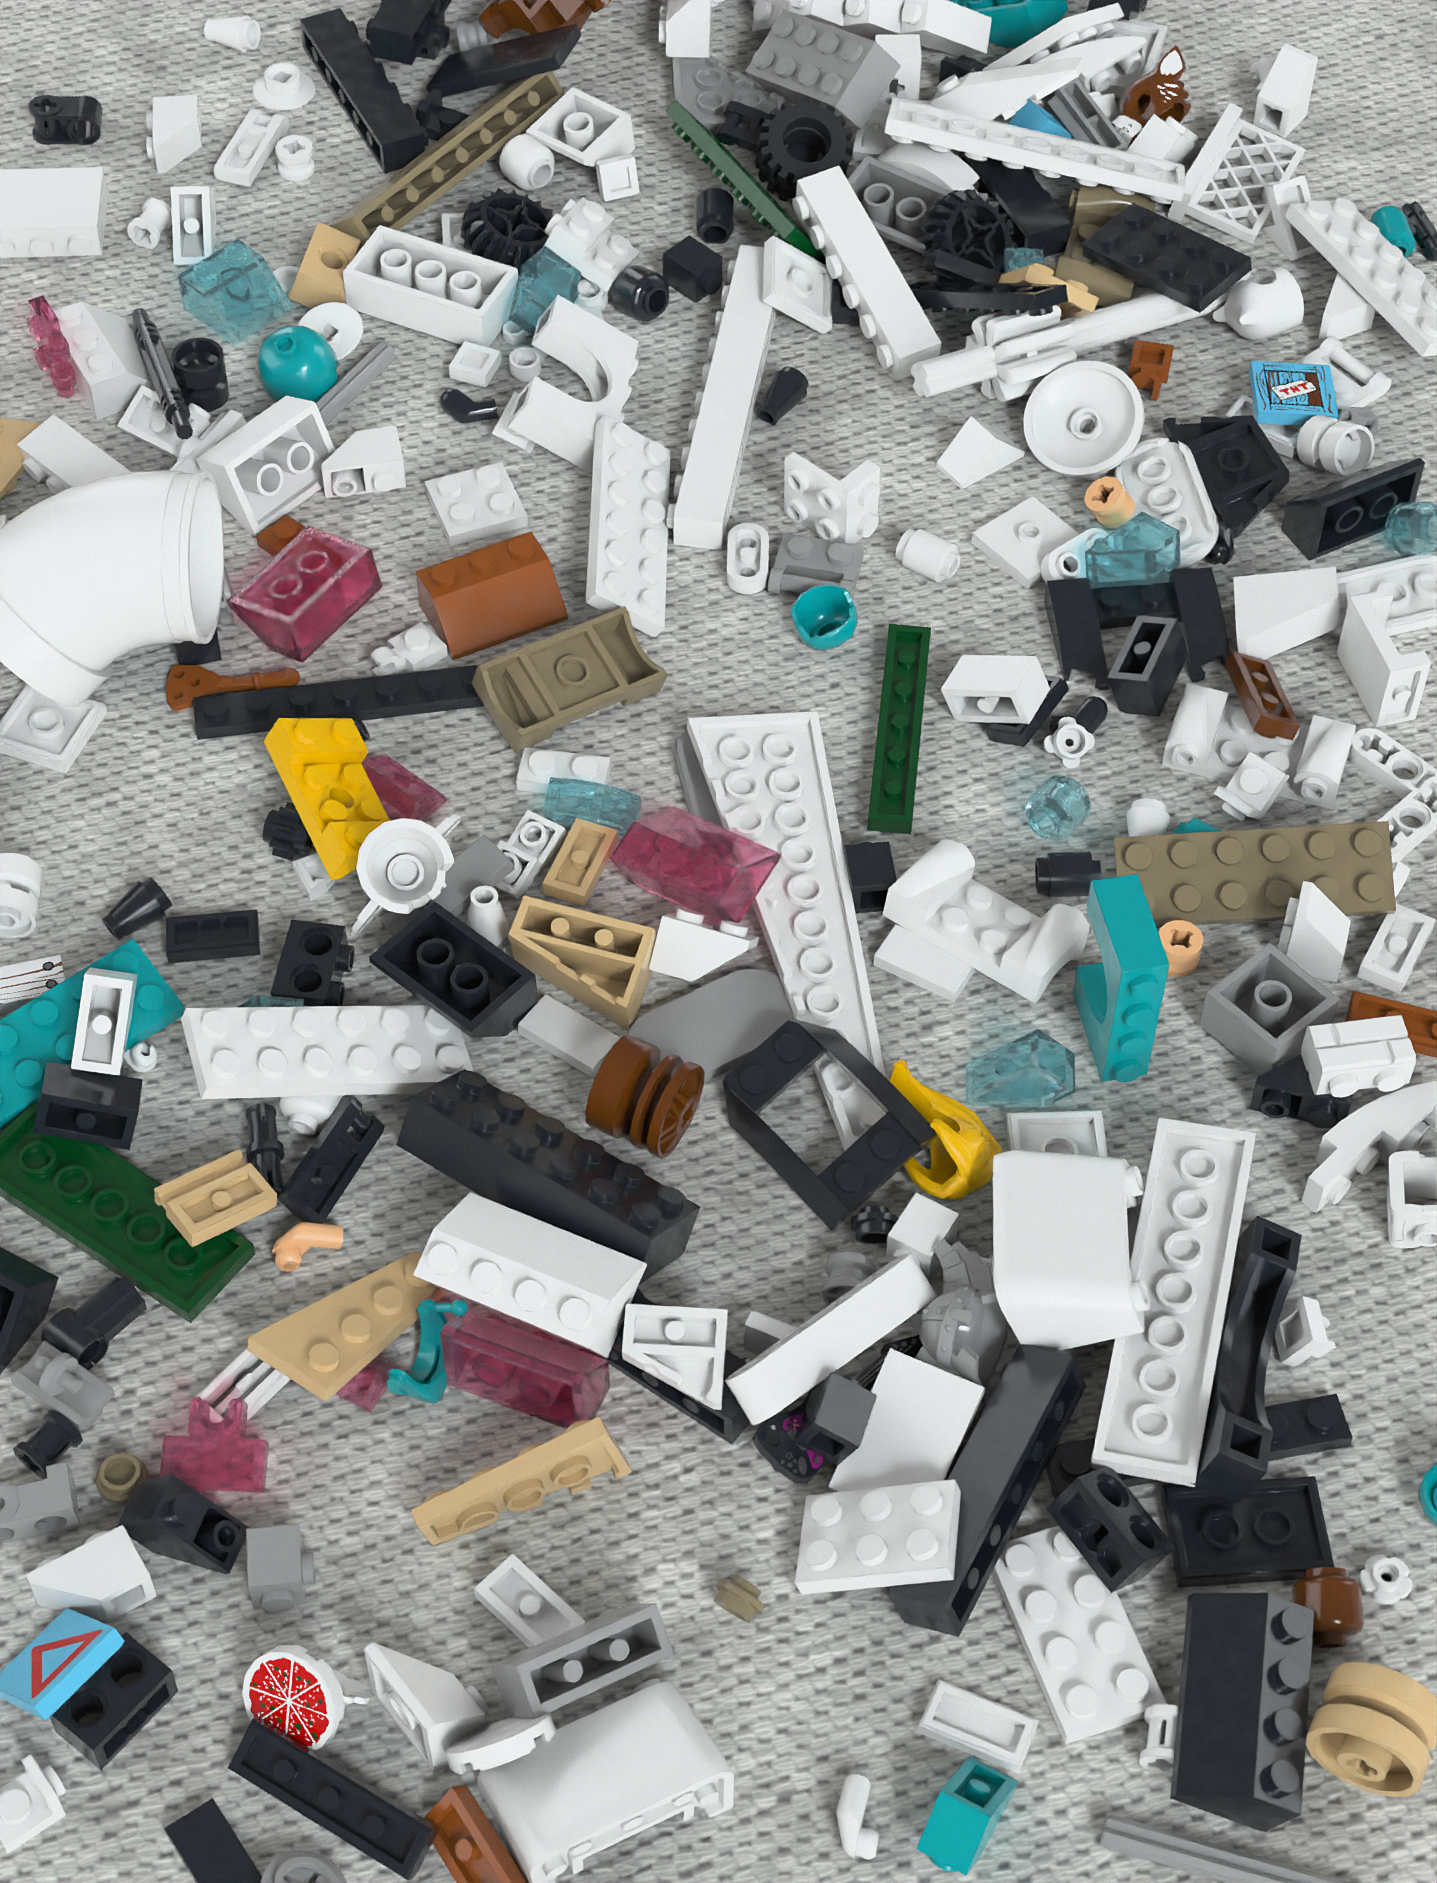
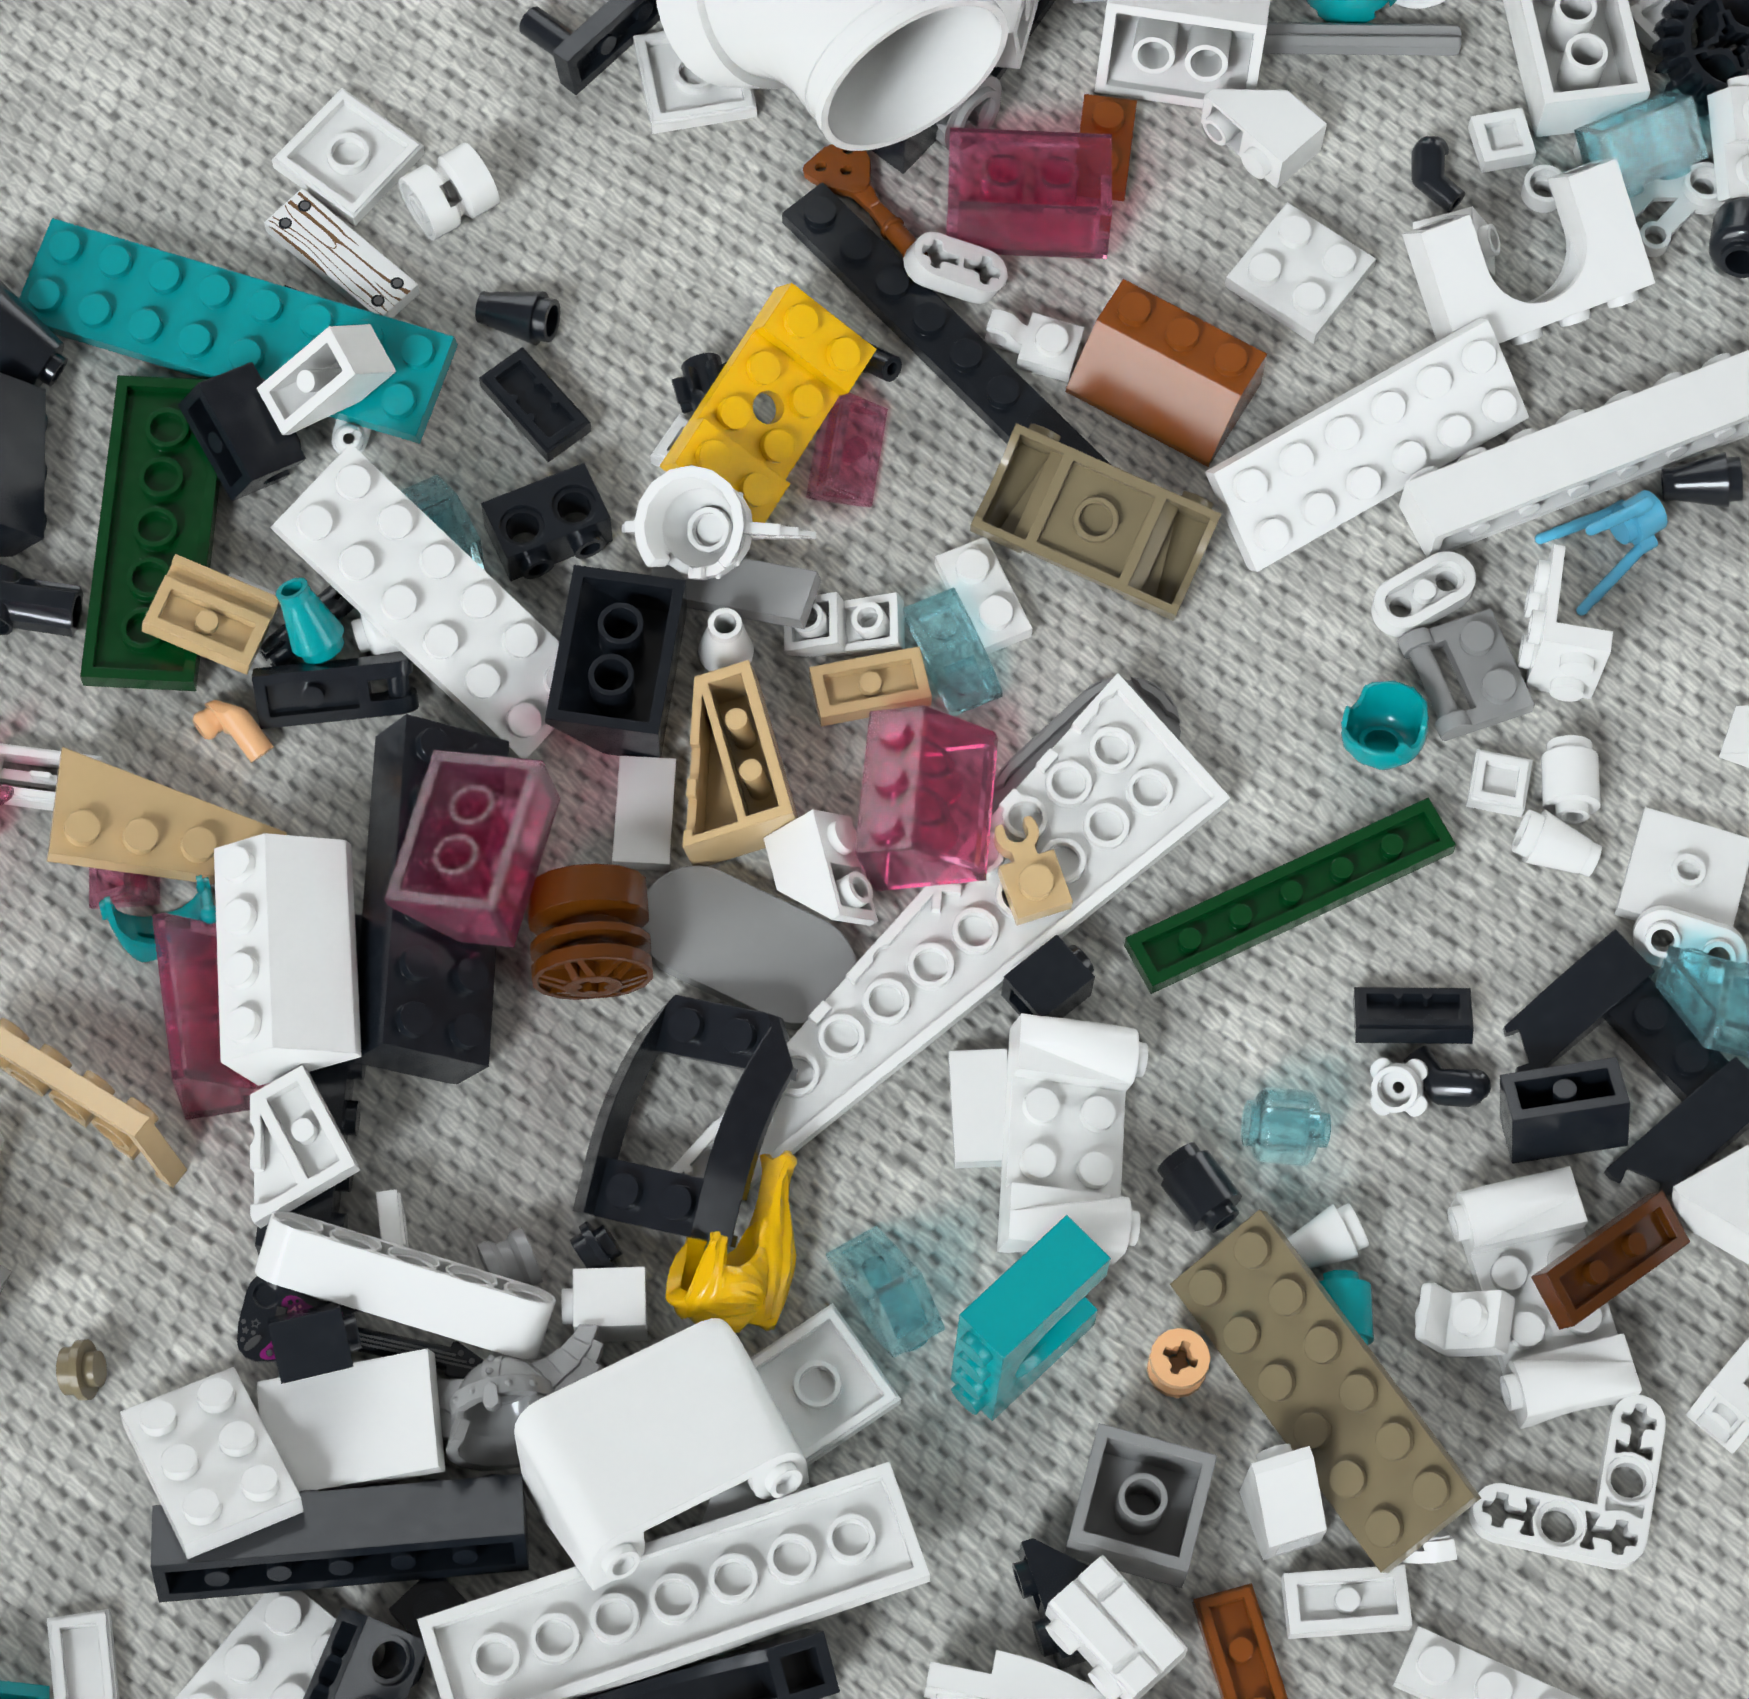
camera: 55 degrees right, 15 degrees up
(281, 1137) = (309, 623): none -> teal cone
(322, 659) = (955, 268): none -> white beam
(546, 1105) = (474, 846): none -> clear pink slope
(779, 441) = (1629, 522): none -> medium azure plant
(796, 837) = (1031, 880): none -> tan plate
(900, 593) = (1499, 783): none -> white tile
(963, 586) = (1554, 844): none -> white cone
(995, 689) = (1405, 964): white brick -> none

